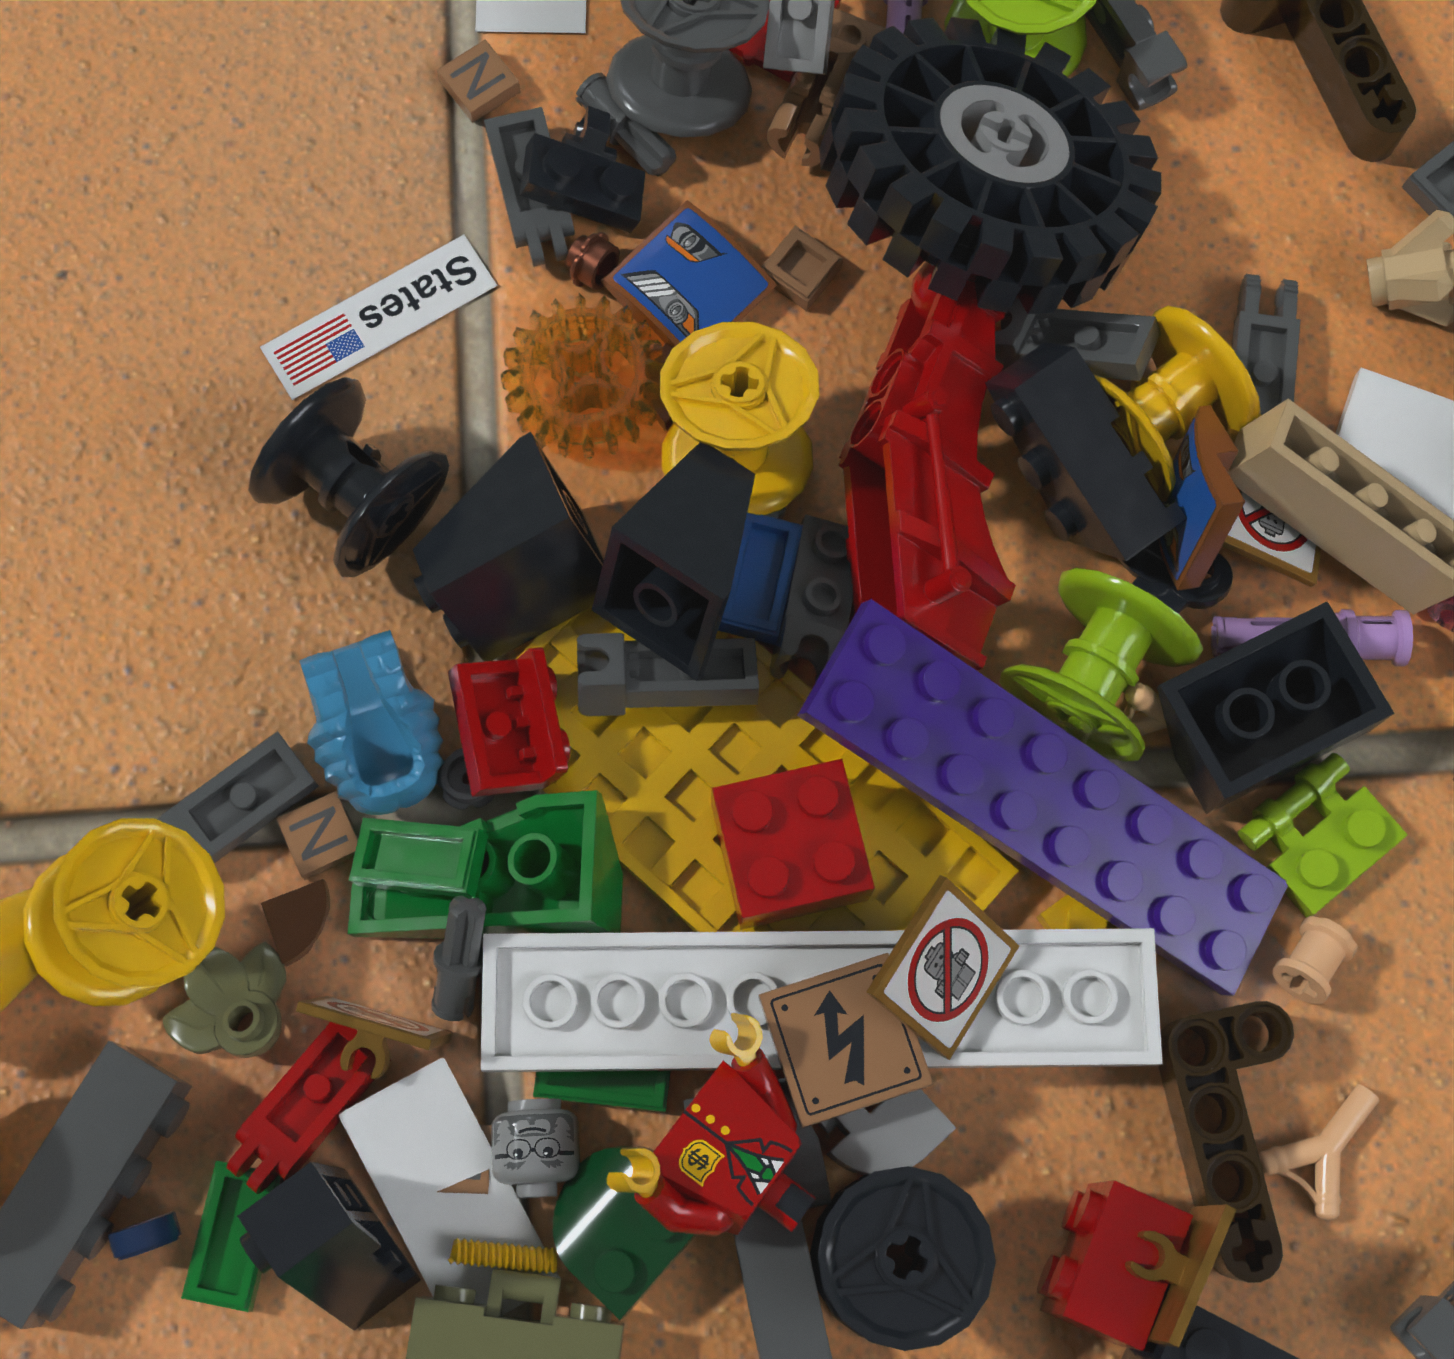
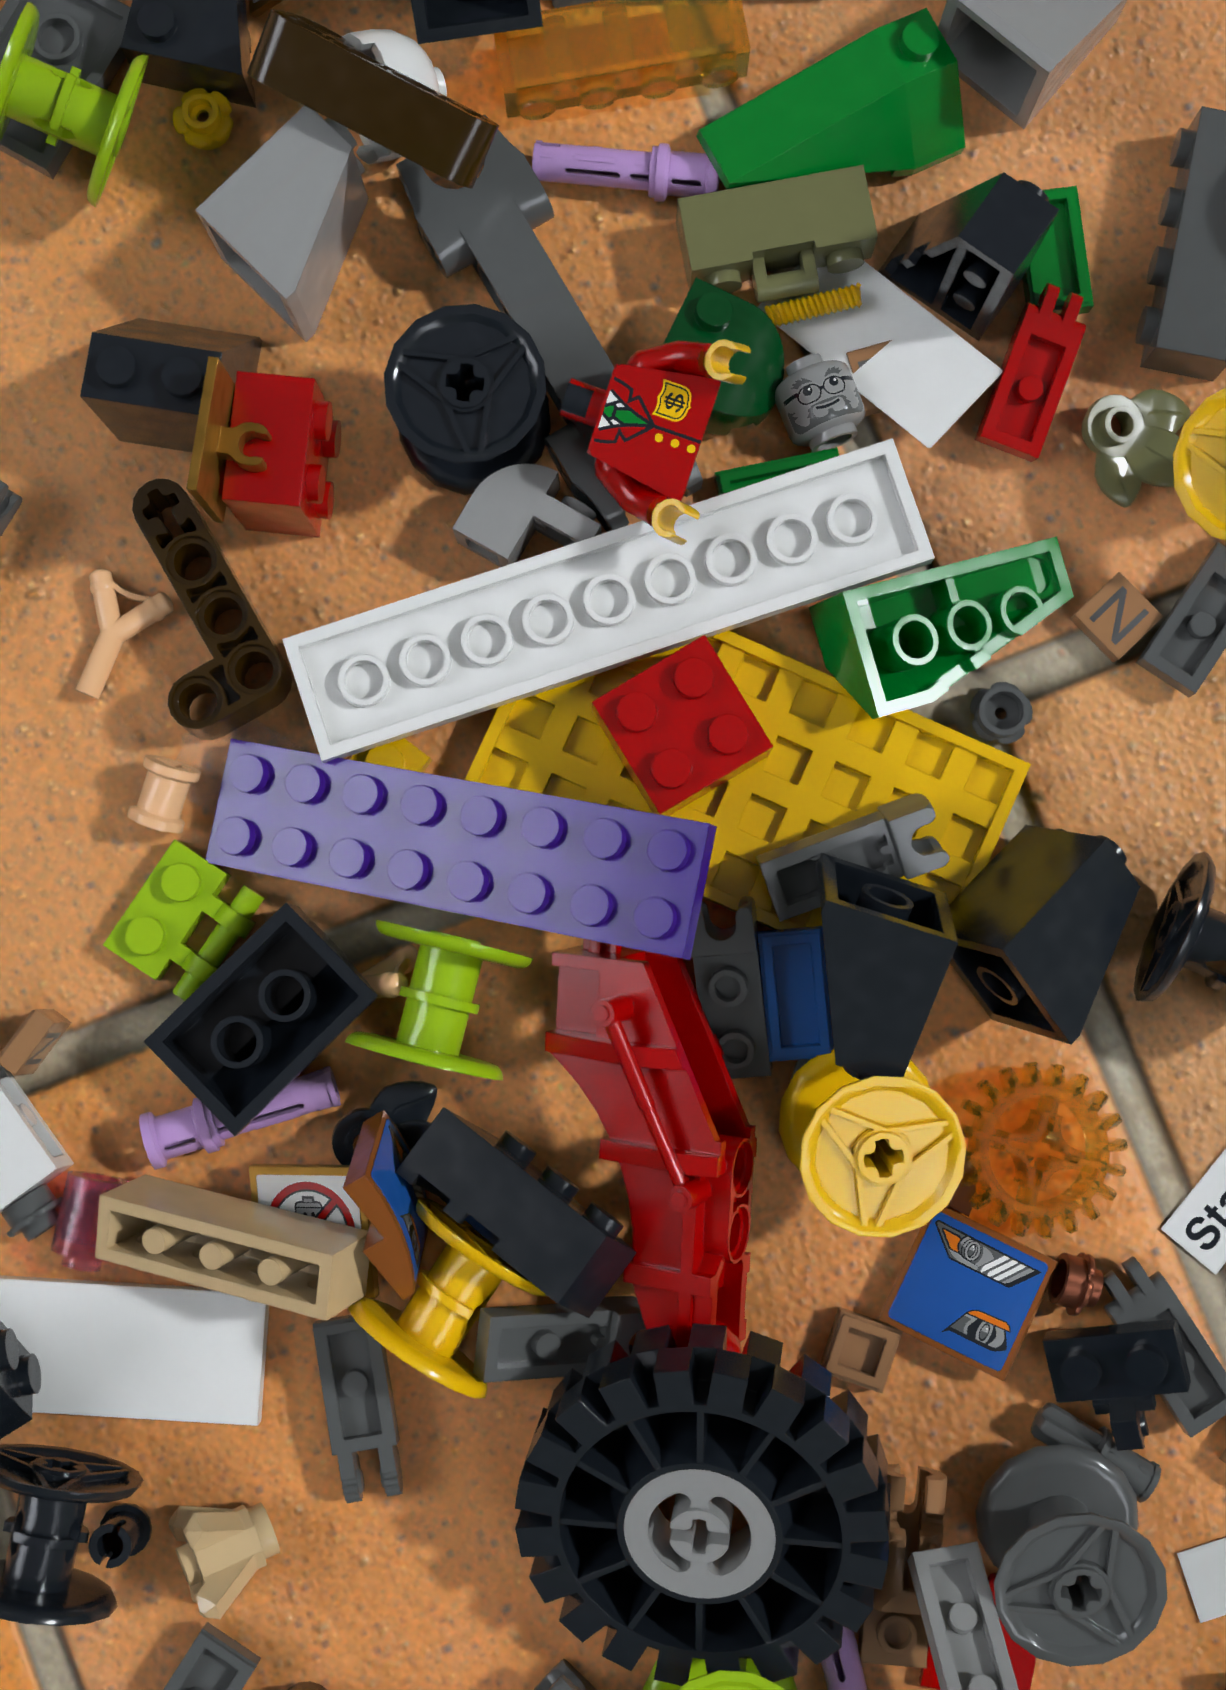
camera: 170 degrees right, 10 degrees up
(145, 1236) = (1129, 222): dark blue tile -> none
(297, 919) = (1106, 534): reddish brown tile -> none
(372, 726) = (1106, 720): dark azure hair -> none
(373, 1030) = (1001, 450): pearl gold piece -> none
(419, 857) = (1018, 616): green tile -> none
(459, 960) = (948, 533): dark grey axle -> none
(509, 724) = (983, 759): red bracket -> none
(841, 1044) = (576, 563): medium nougat tile -> none
(943, 967) = (507, 645): piece -> none

